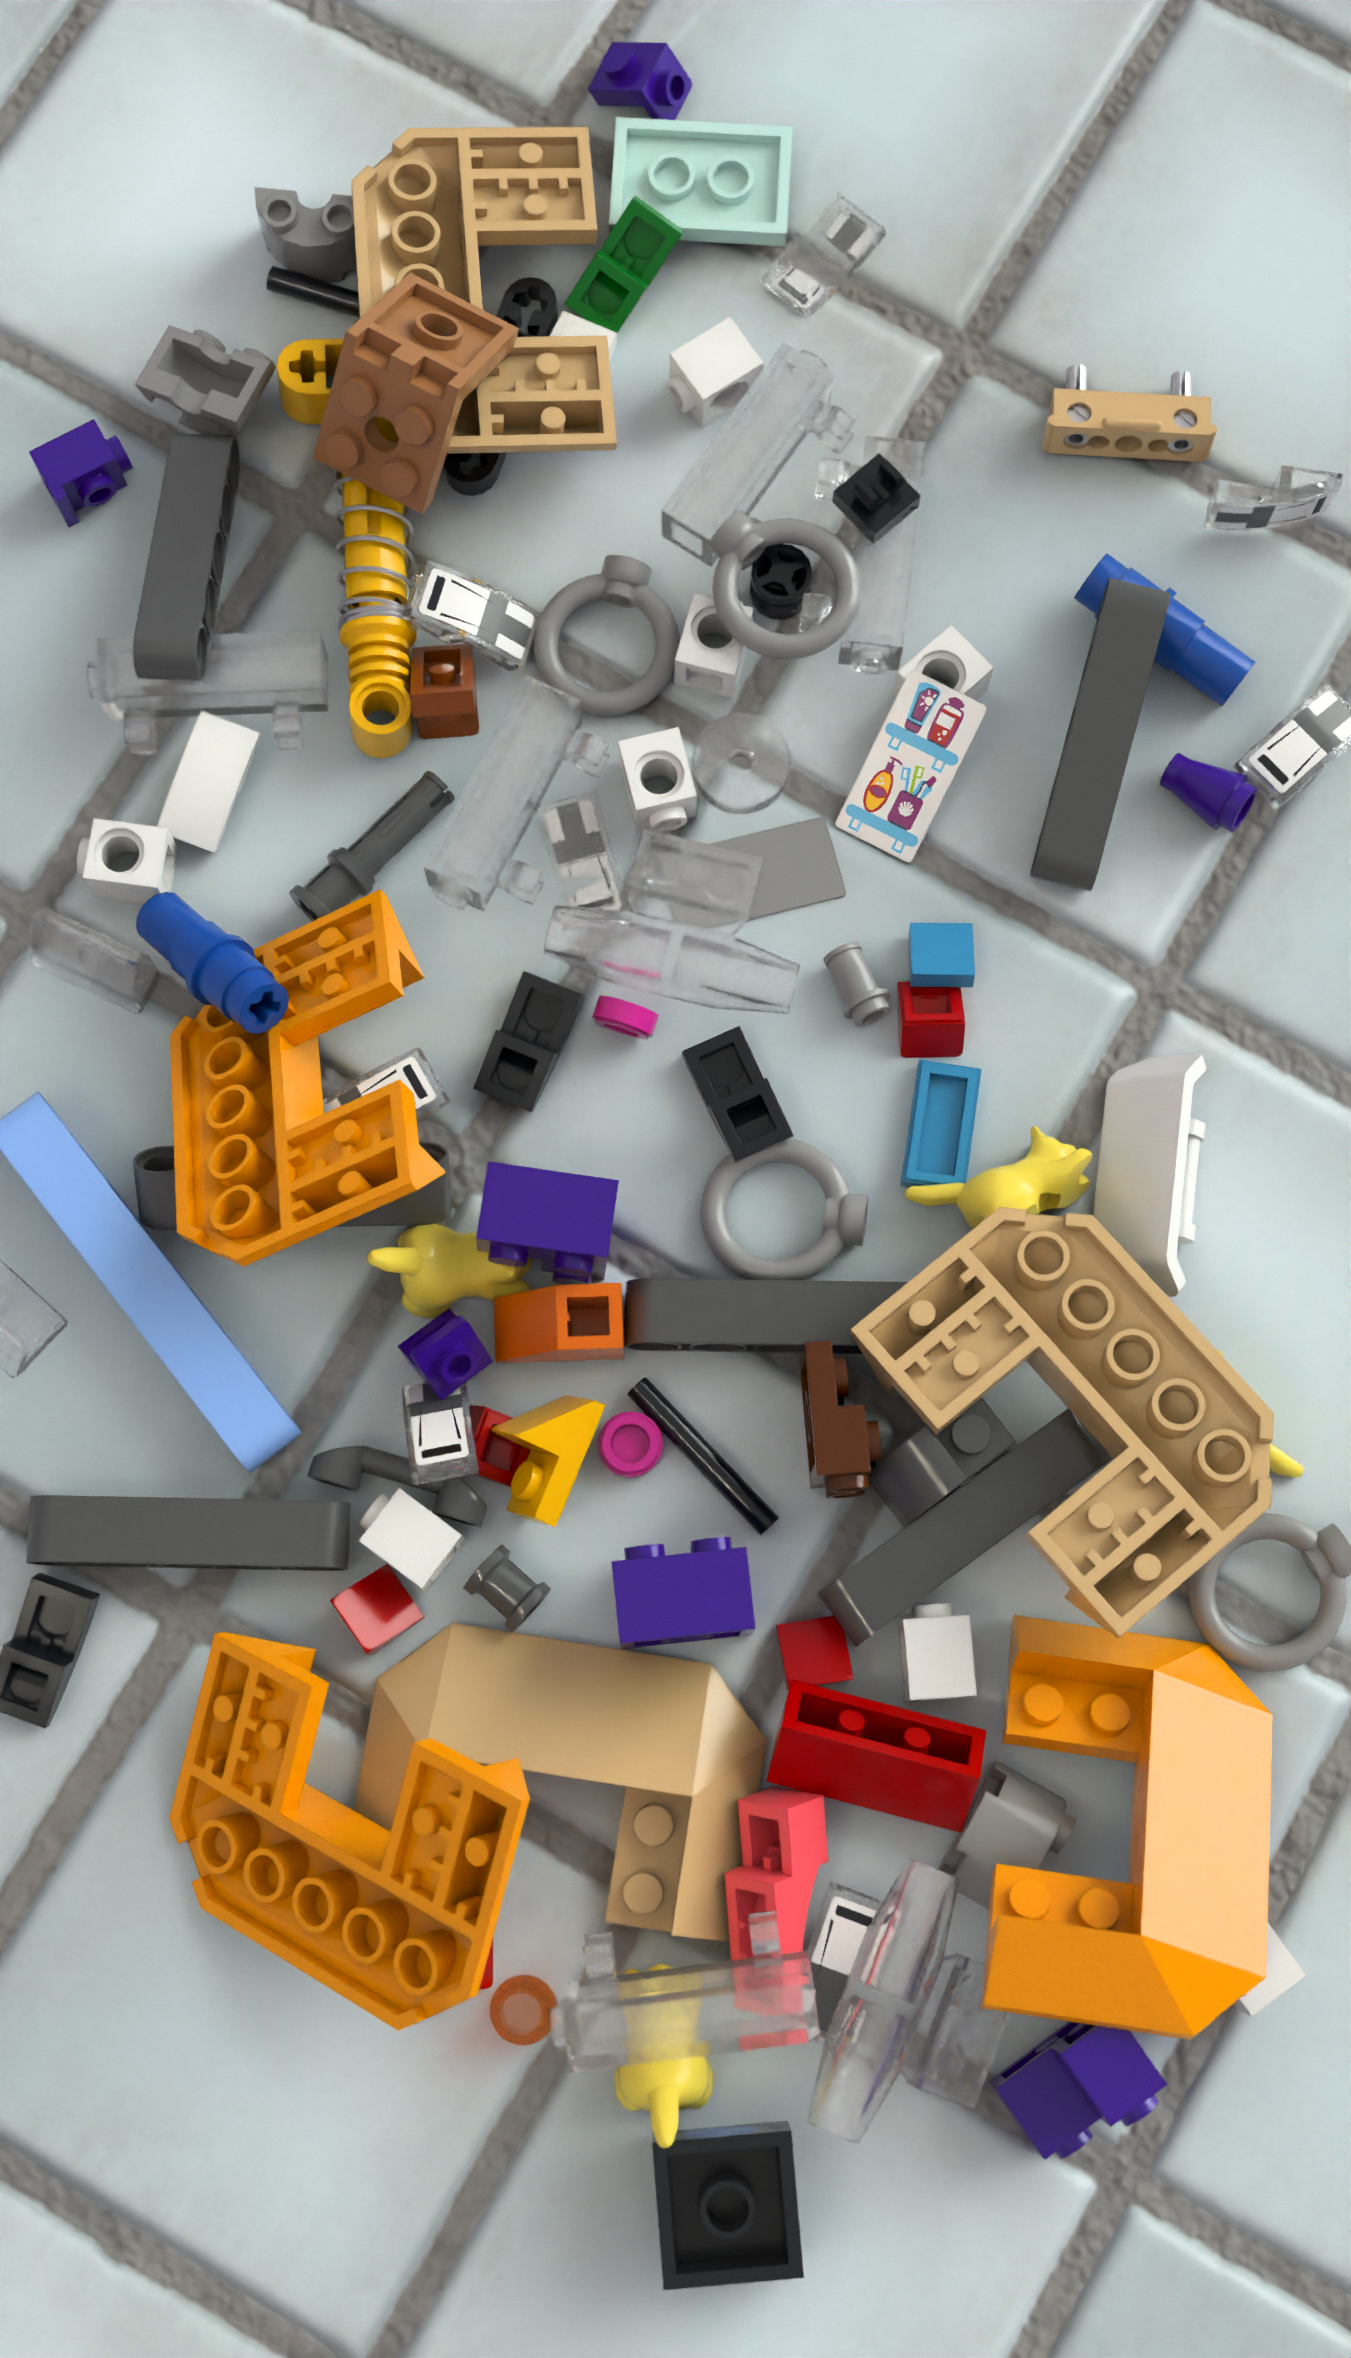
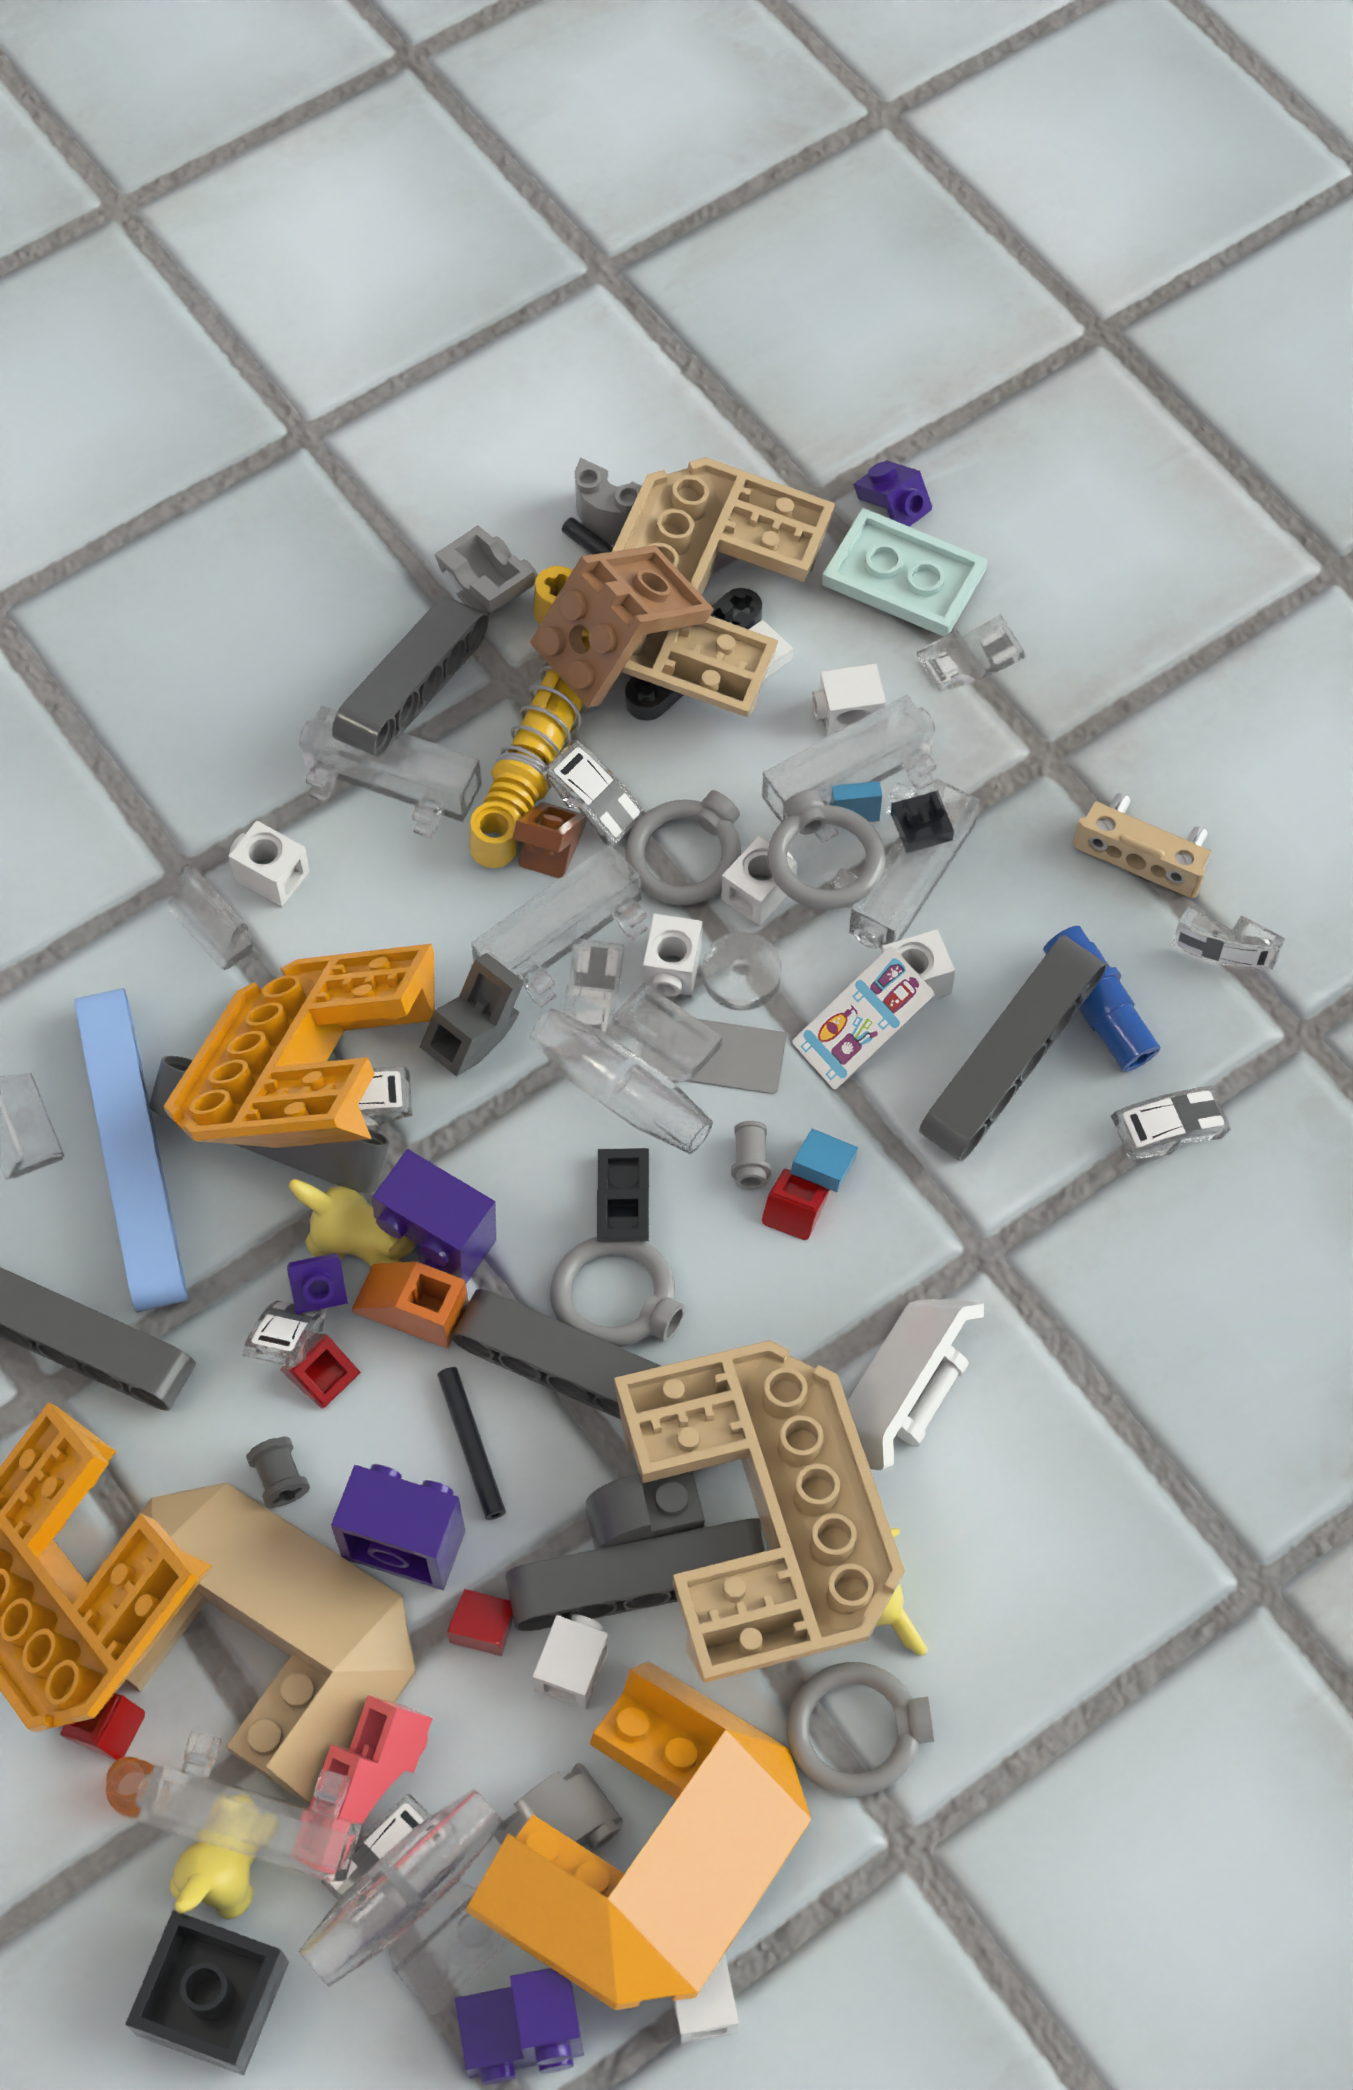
camera: 25 degrees right, 15 degrees down
(81, 469) = (370, 596): dark purple brick -> none
(208, 781) = (351, 830): white slope -> none
(214, 964) = (288, 947): blue piece -> none
(345, 1467) = (205, 1334): dark grey bar -> none
(353, 869) = (446, 922): dark grey pin -> none
(377, 1609) = (176, 1448): slope -> none
(410, 1538) = (226, 1406): white brick -> none
(468, 954) = (475, 1021): none -> dark grey brick
(529, 1041) = (490, 1101): black slope -> none
(558, 1443) = (365, 1382): yellow slope -> none
(624, 266) = (820, 607): green slope -> none
(625, 1017) = (567, 1108): dark pink tile -> none
(630, 1444) = (421, 1412): dark pink tile -> none
(780, 566) = (833, 845): black wheel -> none
(783, 497) = (861, 798): none -> dark azure tile
(838, 1438) = (571, 1460): reddish brown plate -> none
(877, 1756) = (488, 1709): red brick -> none
(940, 1124) = (765, 1283): dark azure tile -> none
(1040, 1182) = (814, 1344): light yellow animal -> none
(1210, 791) = (1086, 1128): dark purple cone -> none

